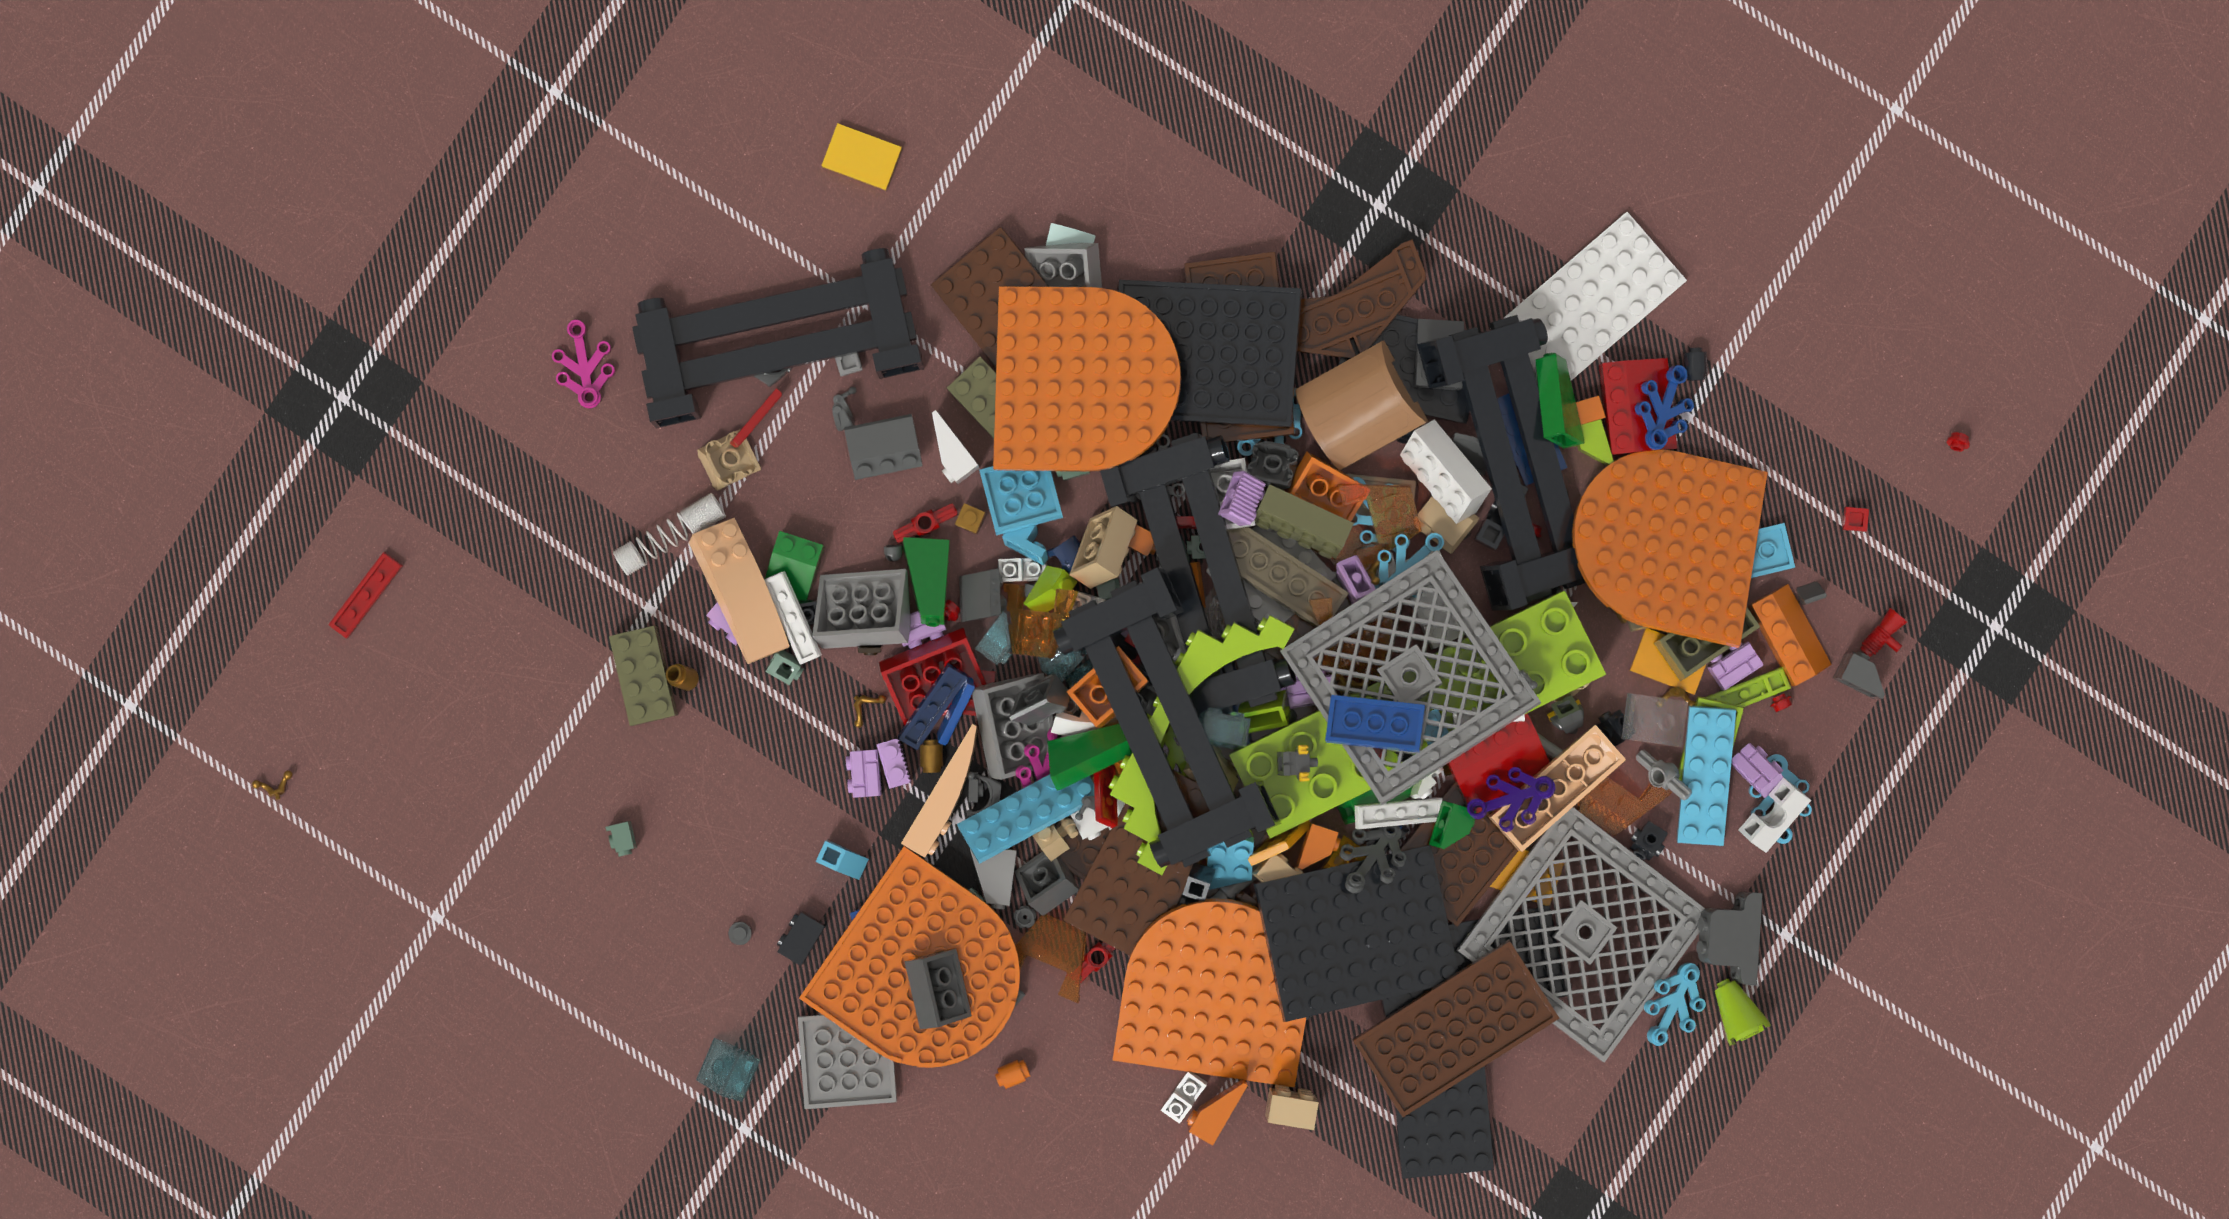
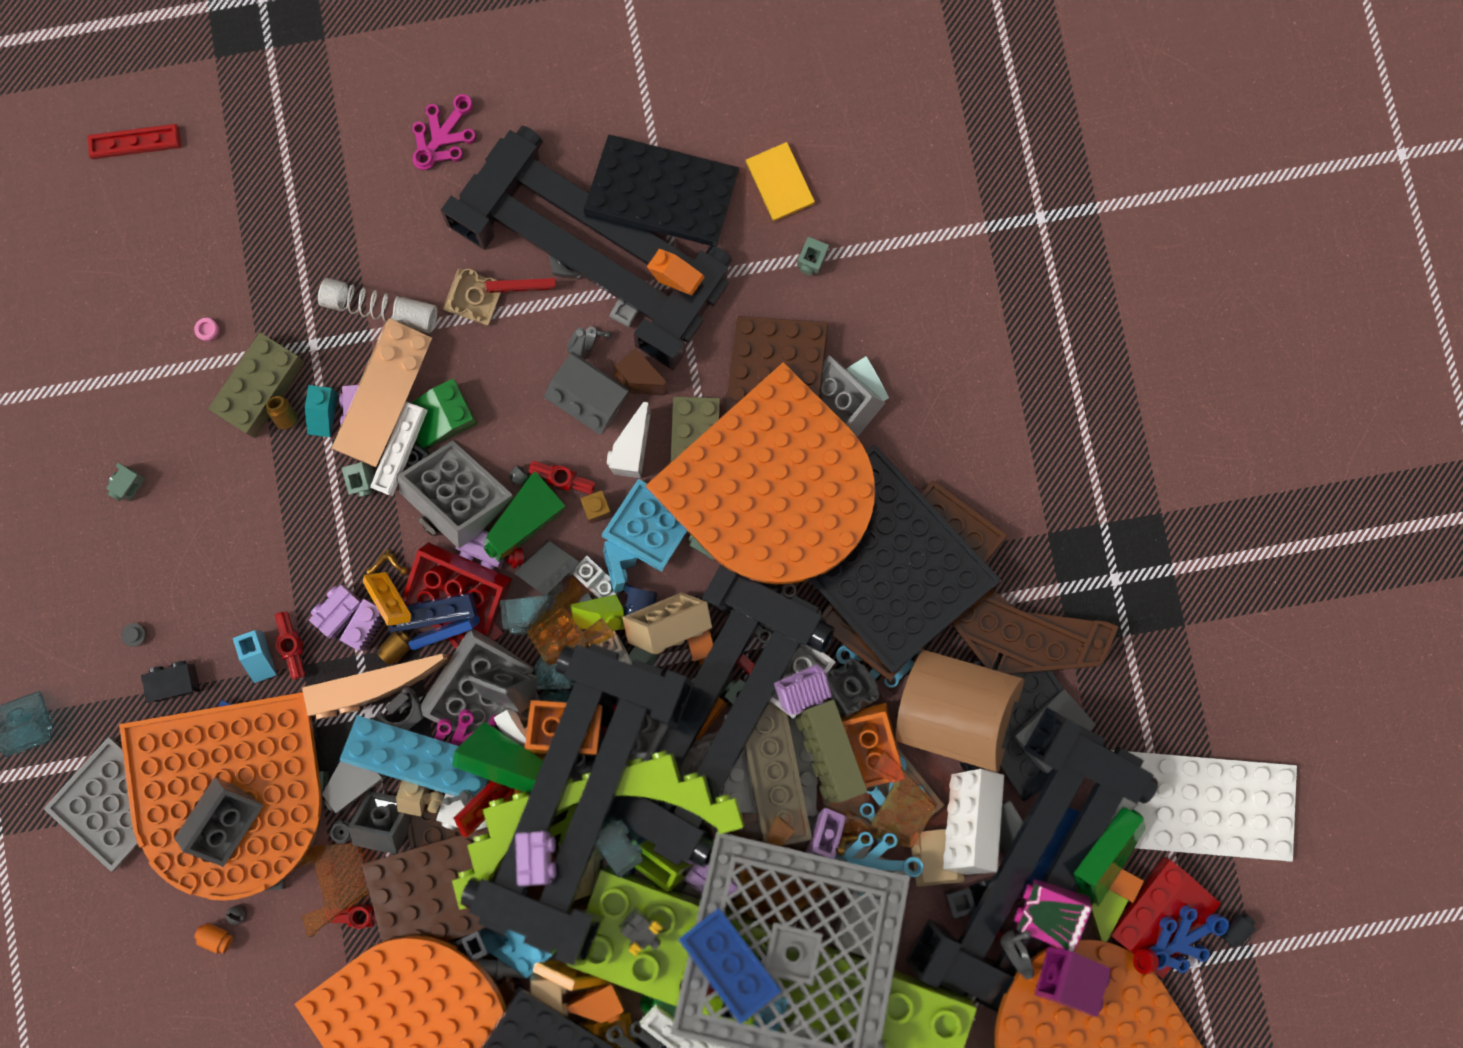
camera: 50 degrees right, 5 degrees down
(563, 674) = (206, 329): none -> bright pink tile
(707, 648) = (320, 410): none -> teal slope
(786, 248) = (661, 190): none -> black plate
(845, 823) = (286, 633): none -> red axle
(860, 299) = (674, 272): none -> orange slope
(893, 727) = (386, 598): none -> light orange plate
(907, 397) = (639, 375): none -> reddish brown slope
(937, 181) = (814, 249): none -> sand green brick
(1008, 1040) = (237, 910): none -> dark grey hinge
(1179, 786) = (534, 858): none -> lavender brick
(1556, 479) = (1053, 914): none -> slope
(1567, 531) = (1020, 960): none -> dark grey helmet
(1613, 509) = (1073, 981): none -> magenta slope
(1650, 448) = (1145, 961): none -> red tile

